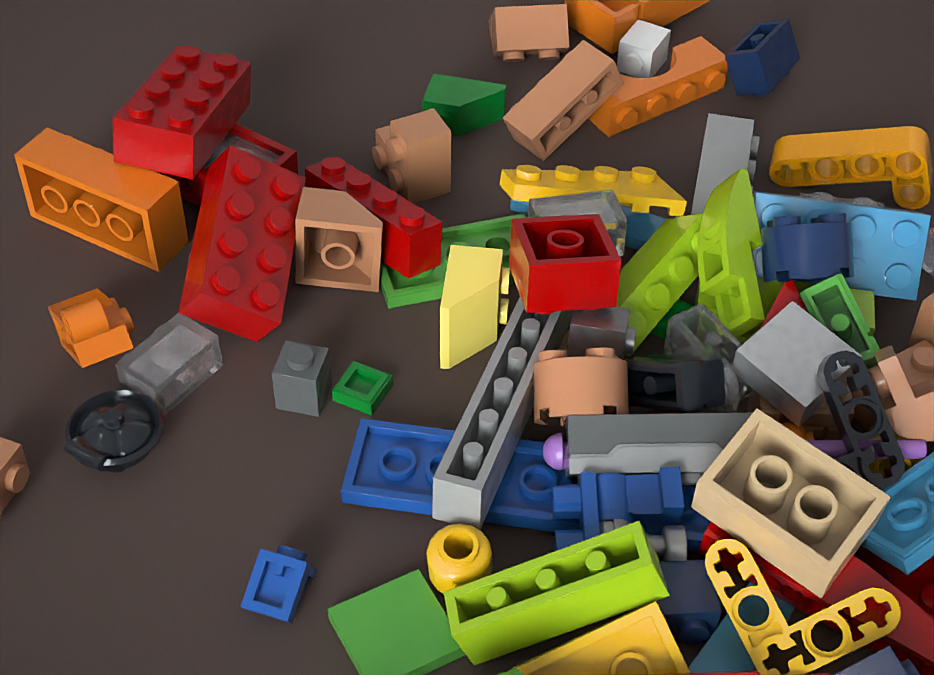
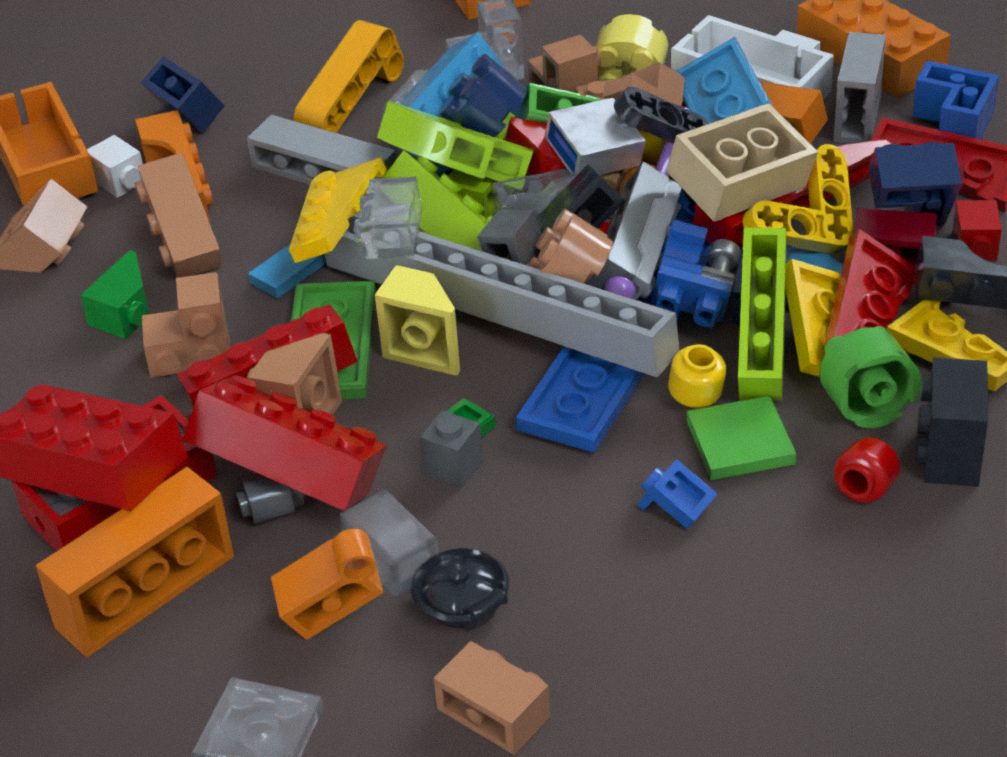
camera: 70 degrees left, 5 degrees down
(564, 263) = (450, 219): red brick -> none

